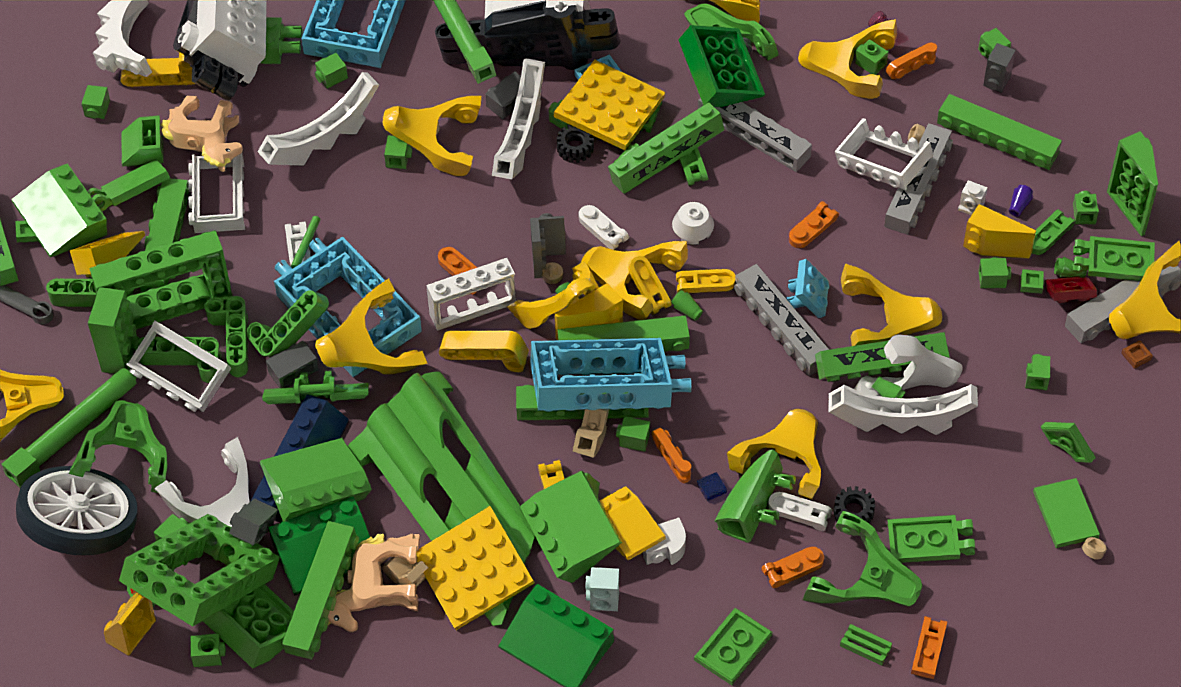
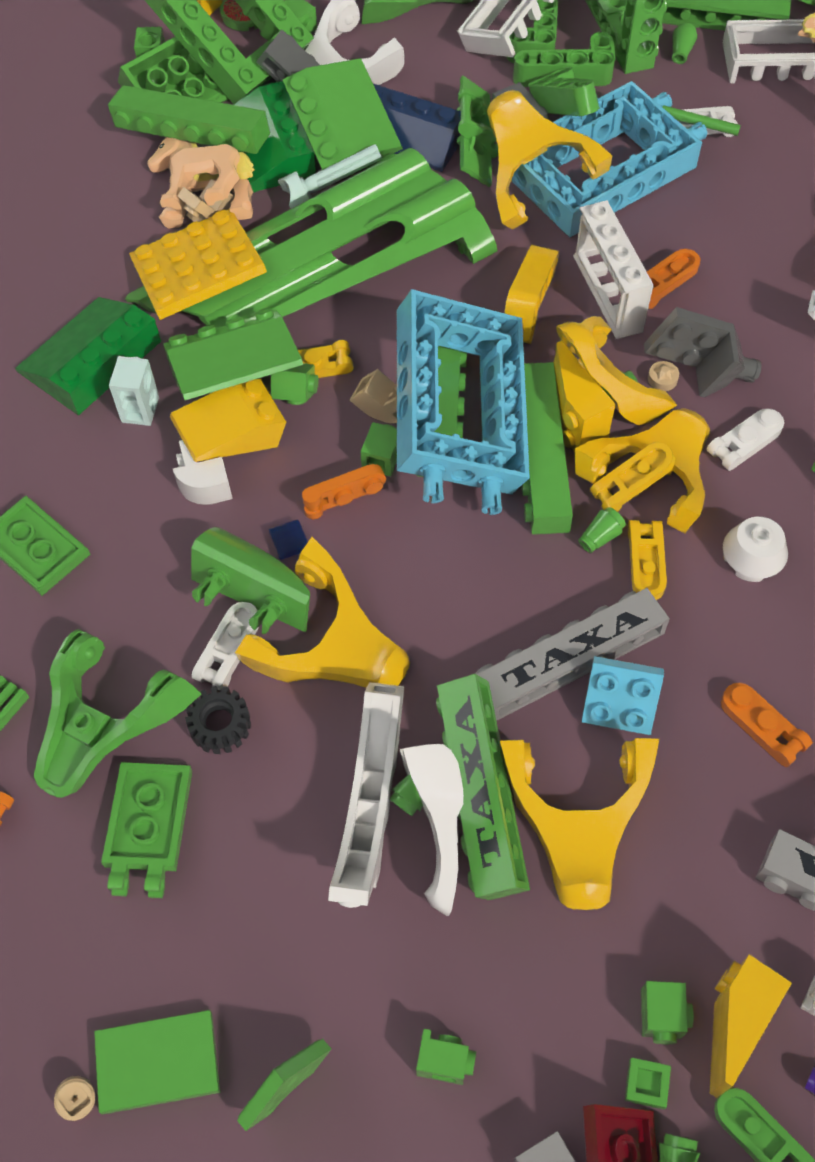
camera: 95 degrees right, 5 degrees up
(386, 507) = (300, 189): none -> light aqua piece
(793, 566) = (140, 632): orange plate -> none

